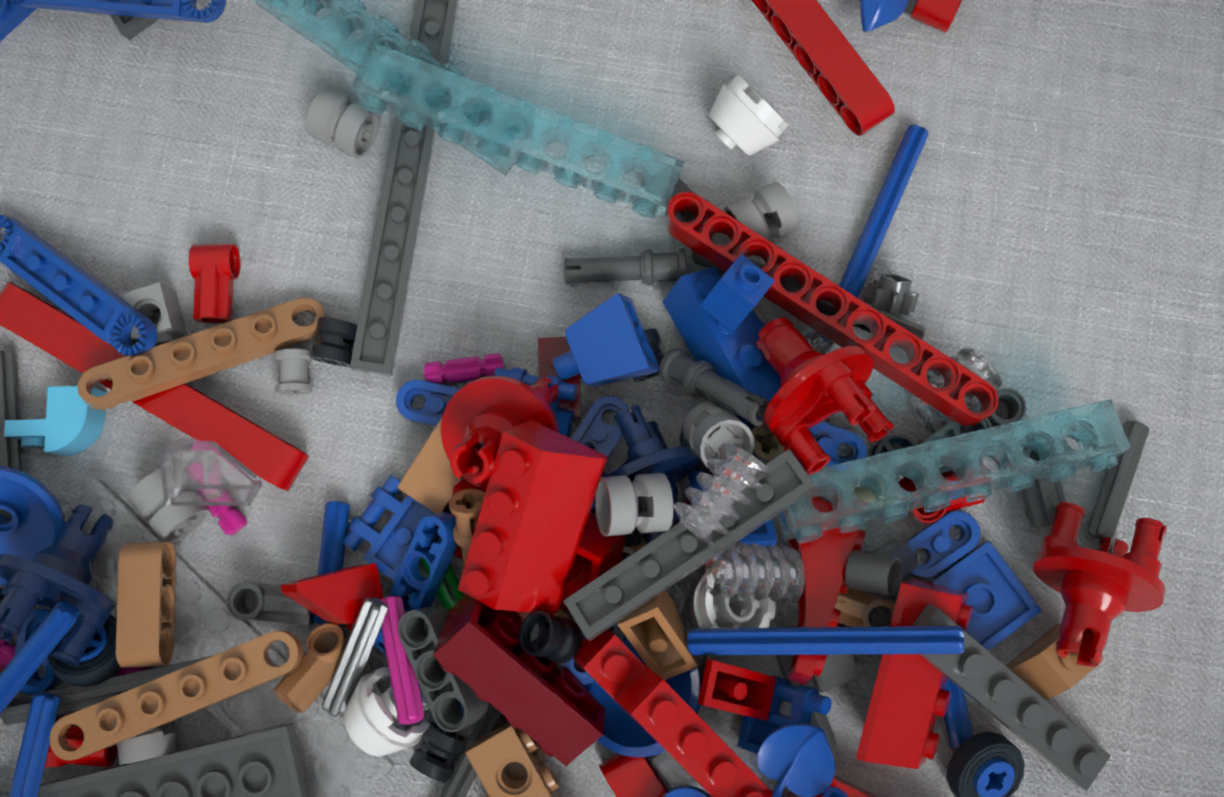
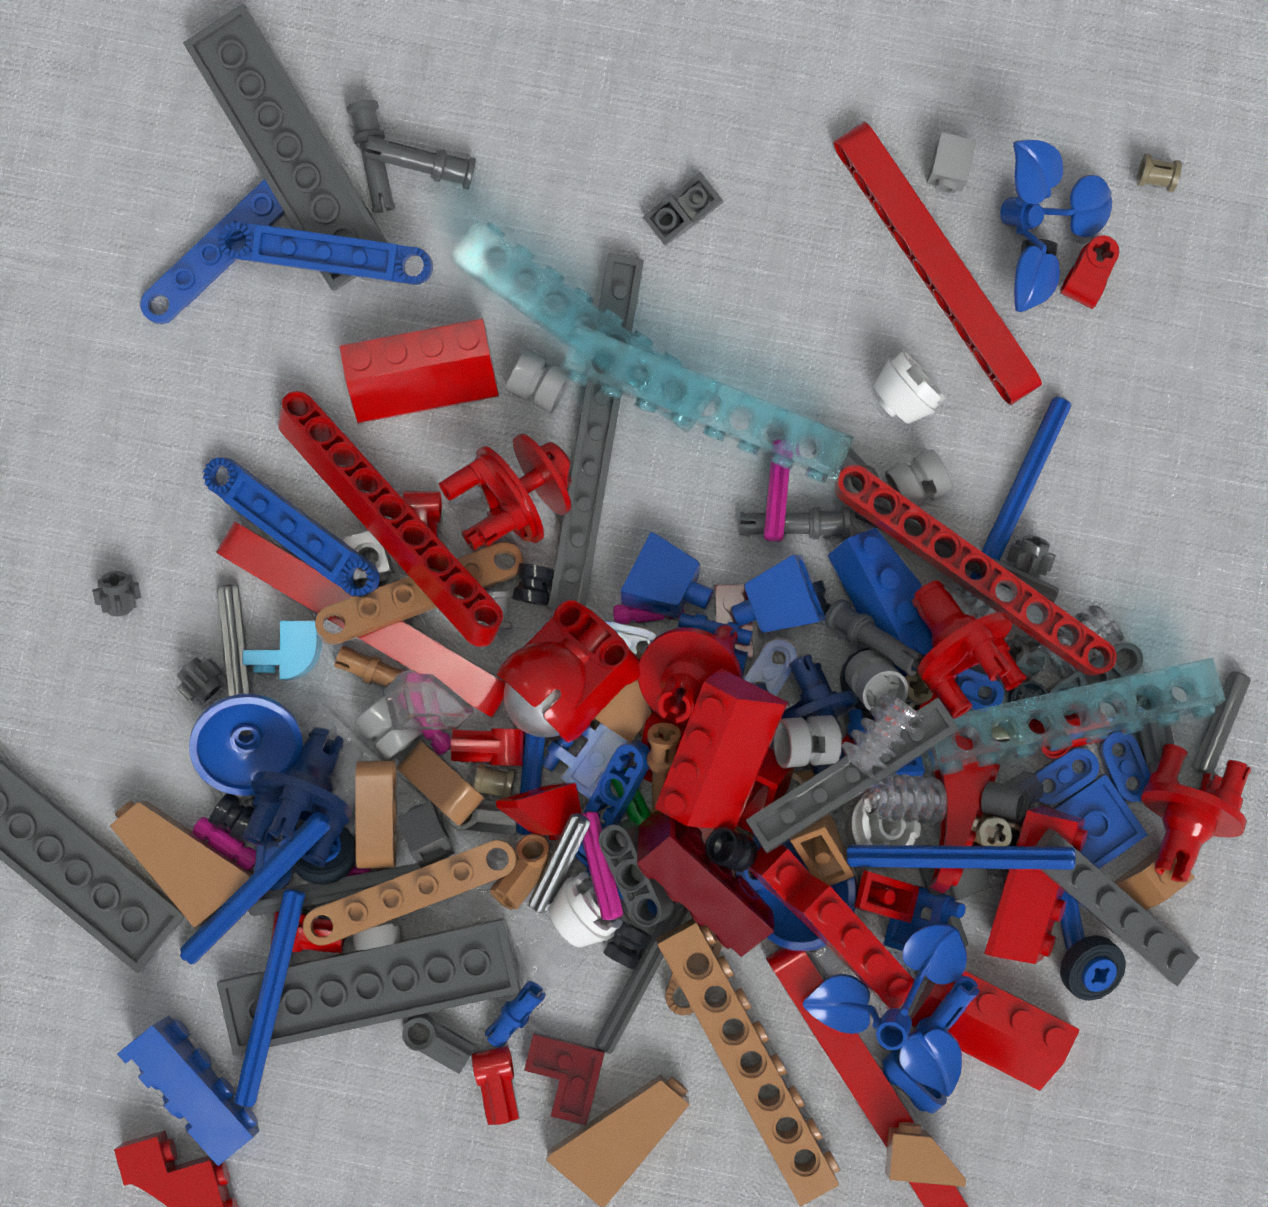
camera: 10 degrees left, 5 degrees up
(145, 437) = (366, 667): none -> medium nougat pin
(171, 273) = (394, 533): none -> red beam
(199, 626) = (426, 834): none -> dark grey brick
(214, 115) = (419, 371): none -> red slope
(219, 567) = (440, 783): none -> medium nougat beam
(287, 563) = (494, 781): none -> dark tan bush
(292, 524) = (493, 746): none -> red piece
(301, 256) = (508, 495): none -> red piece
(360, 438) = (566, 674): none -> red piece
(477, 332) = (664, 580): none -> blue torso
(603, 243) = (776, 502): none -> dark pink axle
(737, 293) = (897, 558): blue brick -> none
(859, 598) = (992, 821): none -> dark tan bush
(893, 405) = (1027, 655): none -> dark grey gear
(1012, 530) = (1128, 764): none -> blue plate

